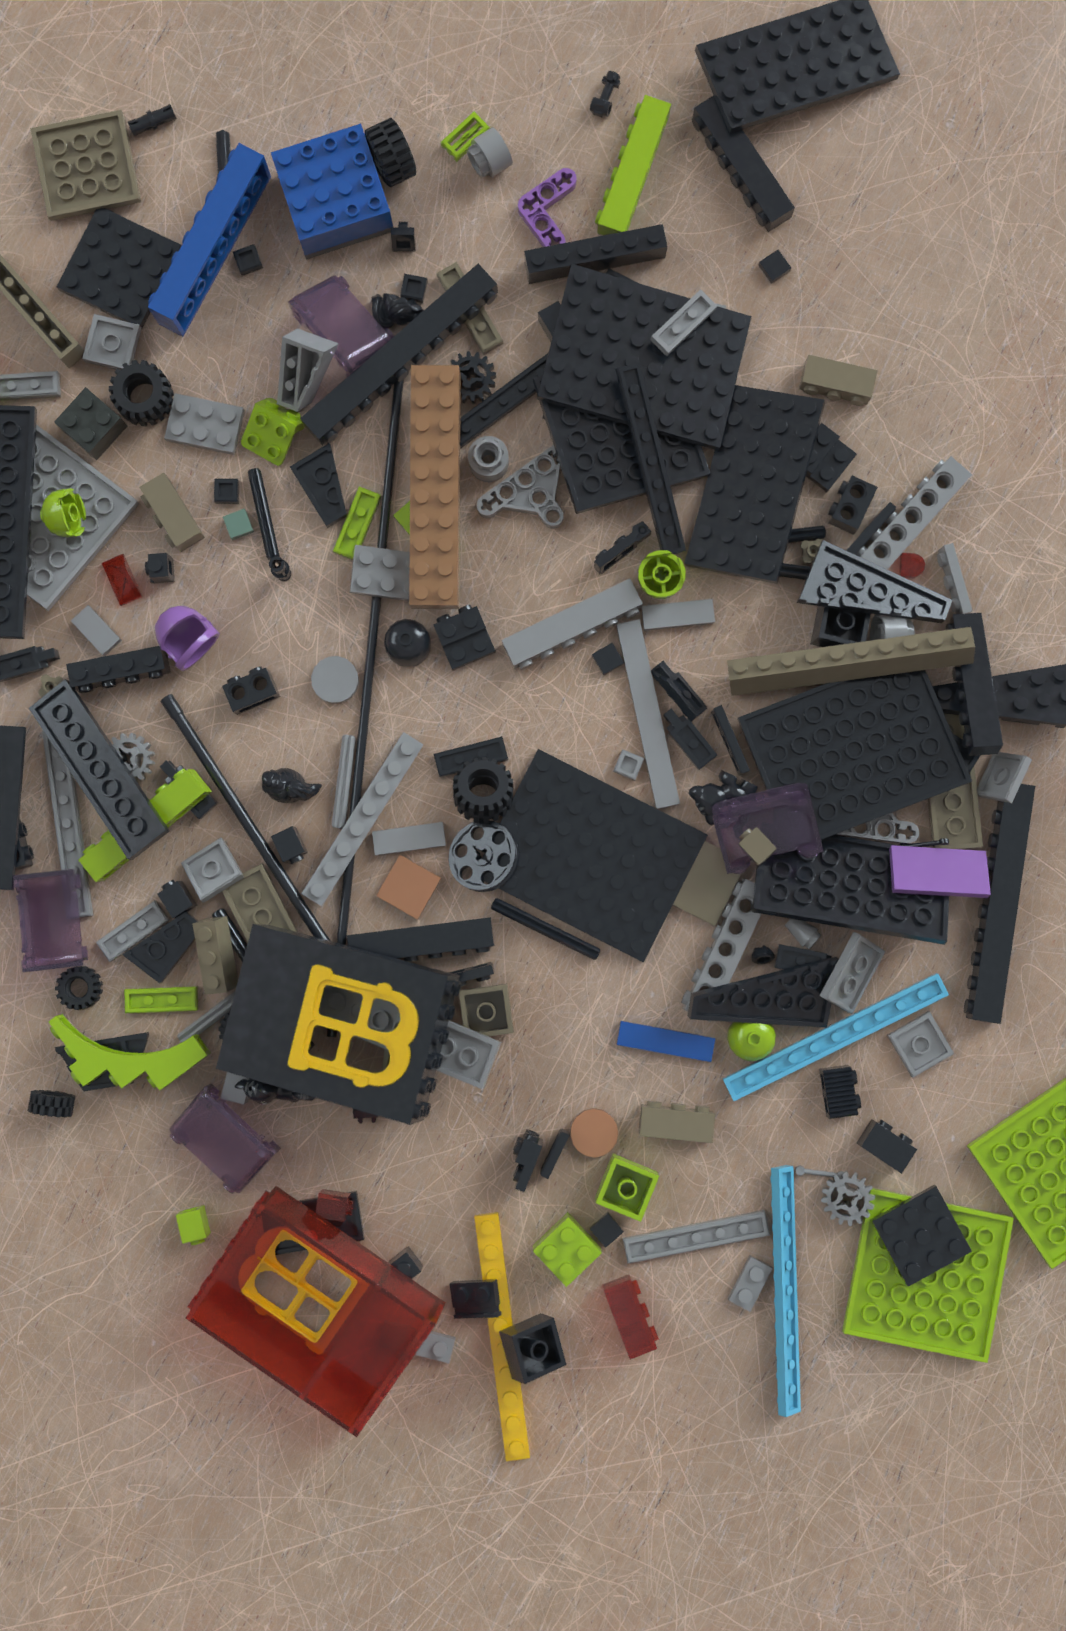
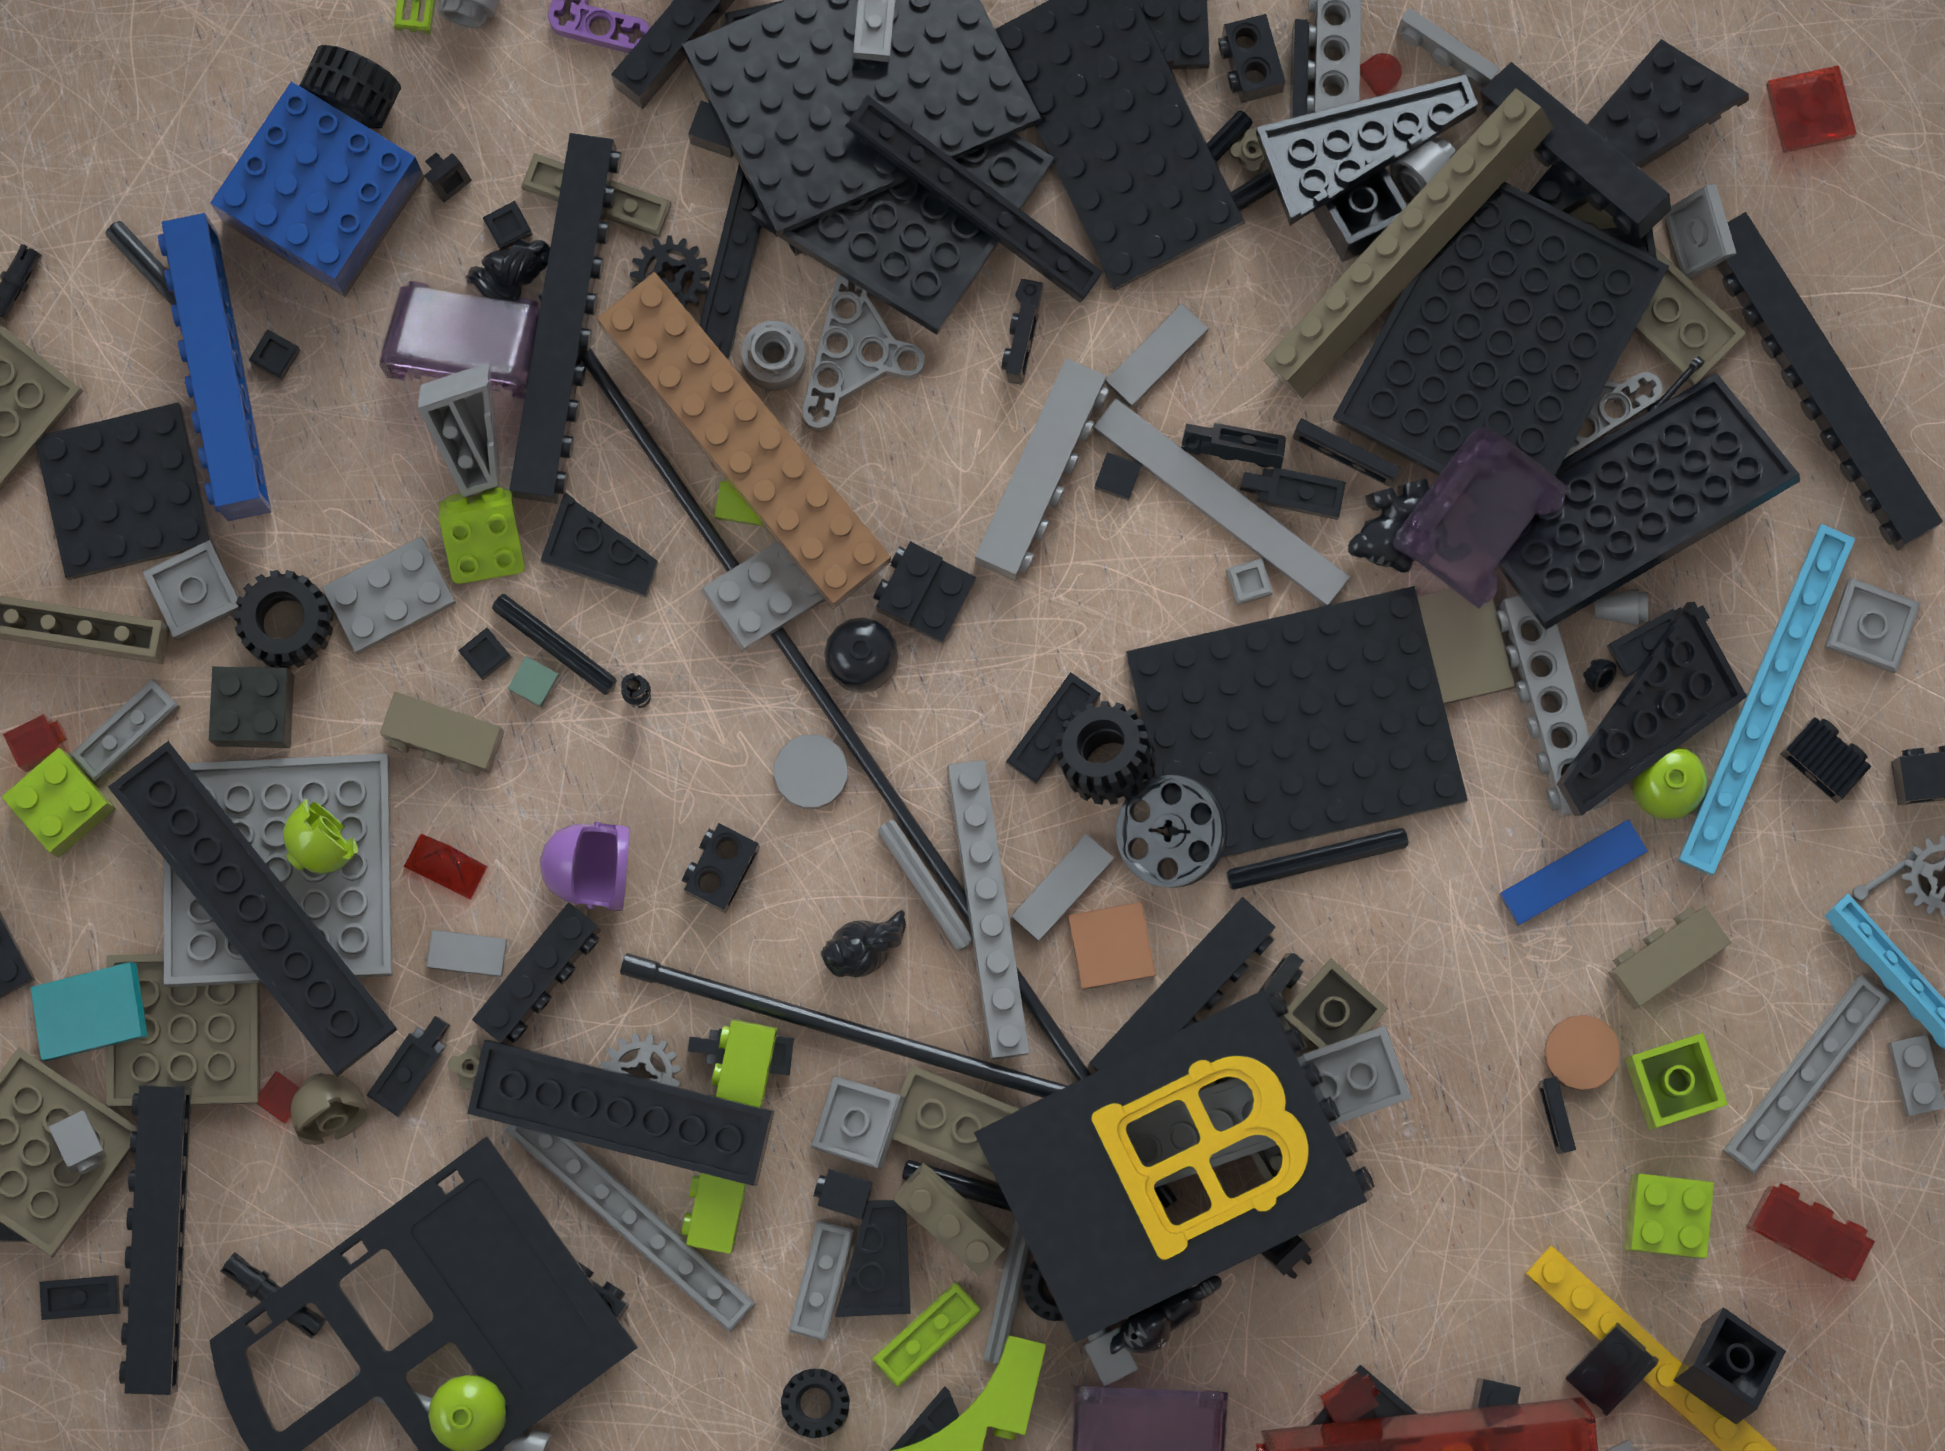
camera: 45 degrees left, 5 degrees down
(50, 920) = (712, 1348): clear purple windscreen -> none
(160, 568) = (484, 813): black brick -> none
(289, 845) = (927, 1014): black brick -> none
(357, 522) = (677, 562): lime tile -> none
(527, 1152) = (1525, 1135): black plate -> none
(606, 1229) = (1695, 1155): black tile -> none
(661, 574) = (1100, 323): lime cylinder -> none
(756, 845) = (1485, 547): dark tan brick -> none
(852, 973) = (1722, 606): light grey tile -> none
(939, 871) = (1721, 403): medium lavender tile -> none

